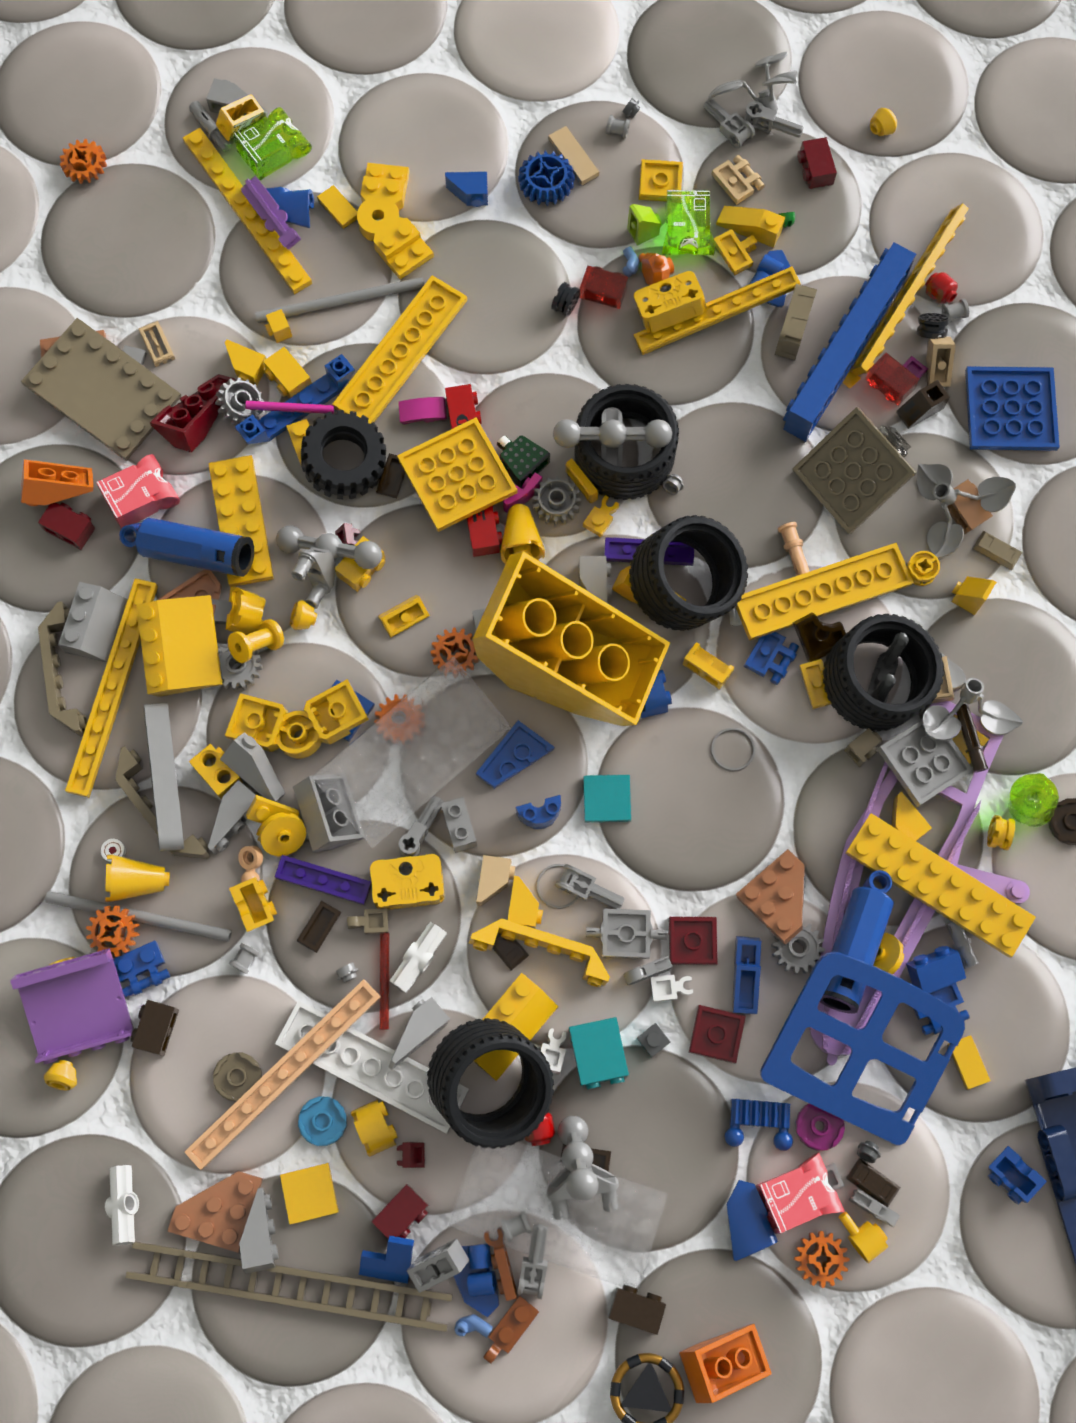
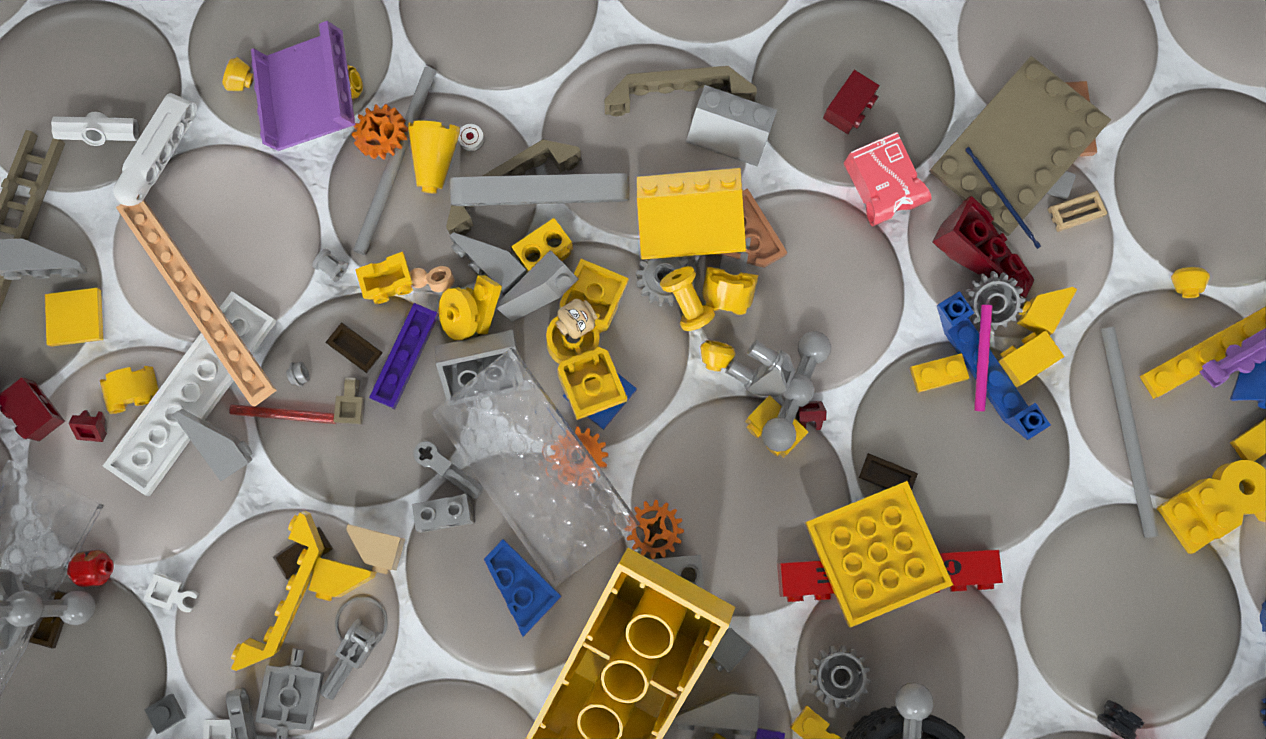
camera: 95 degrees right, 5 degrees up
(52, 482) = (902, 87): orange slope -> none
(109, 692) = (650, 141): yellow plate -> none
(138, 962) = (346, 157): blue plate -> none
(141, 1142) = (154, 149): none -> white piece
(147, 400) = (1002, 197): none -> dark blue piece
(154, 1027) = (270, 169): dark brown brick -> none
(190, 546) = (810, 233): blue piece -> none
(213, 257) = (1190, 281): none -> yellow cone
(218, 1213) = (74, 224): nougat plate -> none
(236, 1075) = (209, 251): dark tan tile -> none
(241, 513) = (844, 294): yellow plate -> none
(278, 326) = (1094, 352): yellow plate -> none
(281, 725) = (576, 318): none -> tan head
(322, 1121) = (146, 336): dark azure tile -> none
(350, 428) = (951, 409): black tyre -> none
(401, 350) = (1056, 500): yellow plate -> none
(403, 615) = (709, 472): yellow slope -> none
(410, 889) = (377, 448): yellow axle -> none
(418, 957) = (301, 453): white piece -> none
(422, 409) = (972, 519): dark pink slope -> none
(515, 1118) = (90, 525): black tyre -> none
(521, 534) = (793, 625): yellow cone -> none
(522, 458) = (899, 638): dark green torso -> none
(523, 494) = (858, 642): dark pink slope -> none
(527, 1010) = (207, 545): yellow slope -> none
(540, 816) = (440, 613): blue cylinder -> none
(581, 481) = (863, 711): yellow tile -> none
(599, 1053) = (158, 647): teal brick -> none
(607, 798) = (454, 694): teal tile -> none

